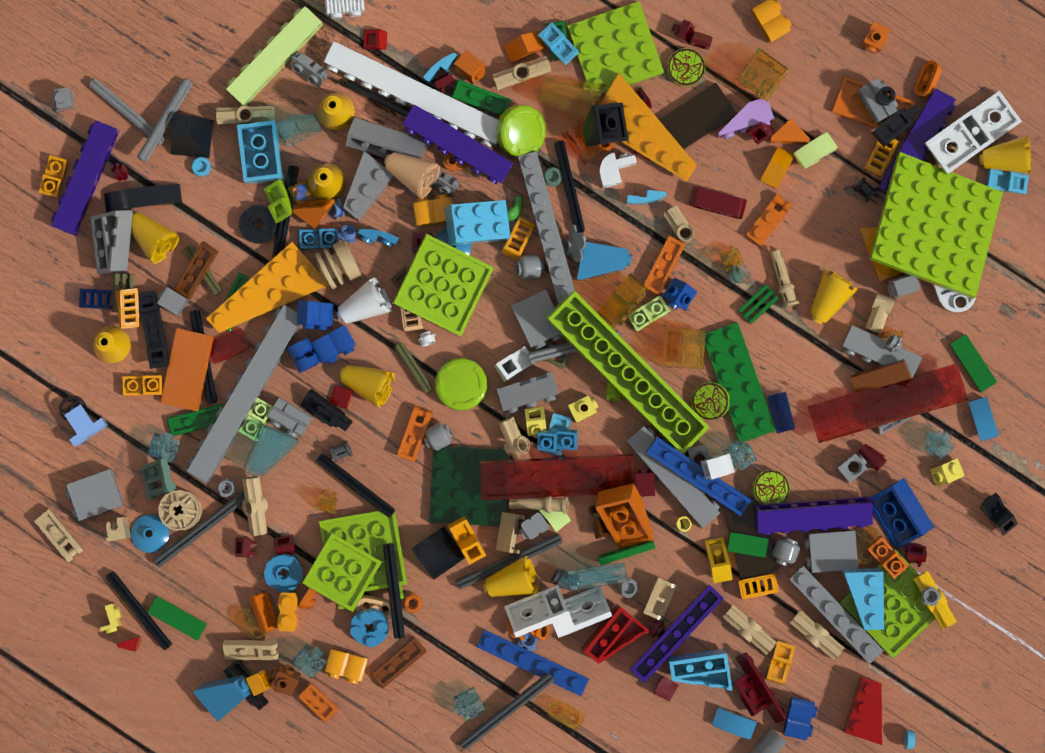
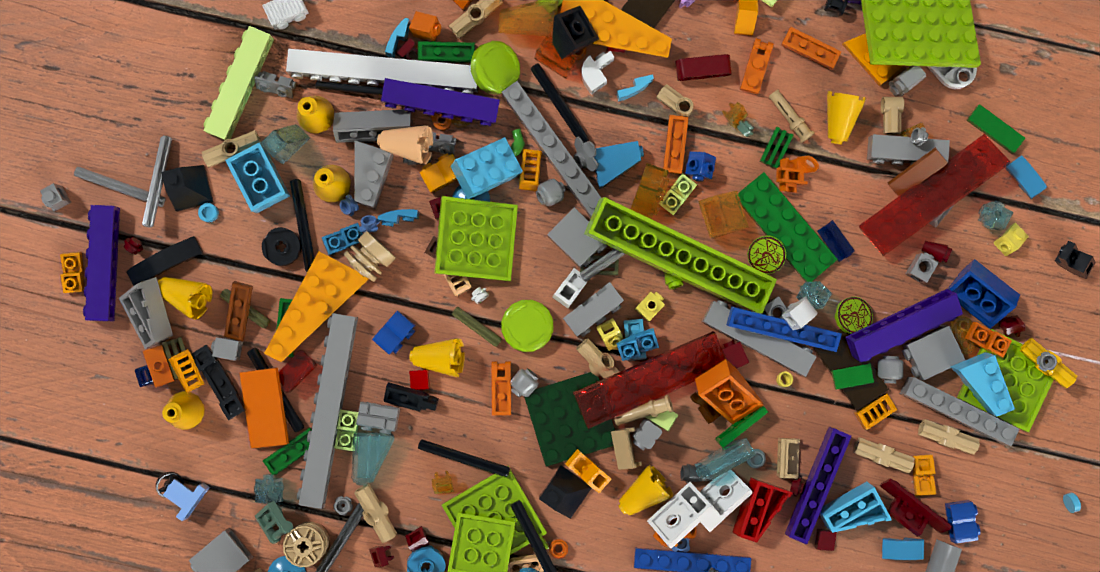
camera: 25 degrees left, 0 degrees up
(103, 294) = (158, 366): none -> orange plate
(141, 385) = (227, 438): light orange slope -> none
(280, 203) = (294, 219): lime slope -> none
(300, 192) = (310, 201): clear yellow tile -> none
(303, 355) = (369, 353): blue wheel -> none
(313, 211) = (328, 215): orange slope -> none
(315, 314) = (365, 311): blue brick -> none
(340, 451) = (437, 431): dark grey bush -> none
(365, 303) = (408, 283): white cone -> none
(375, 39) = (327, 34): red slope -> none
(497, 566) = (624, 485): dark grey axle -> none
(552, 177) = (541, 100): sand green plate -> none
(718, 560) = (830, 400): yellow slope -> none
(757, 333) = (786, 172): none -> orange piece
(826, 222) = (811, 48): none -> orange plate
(866, 712) = (1022, 492): red wedge -> none

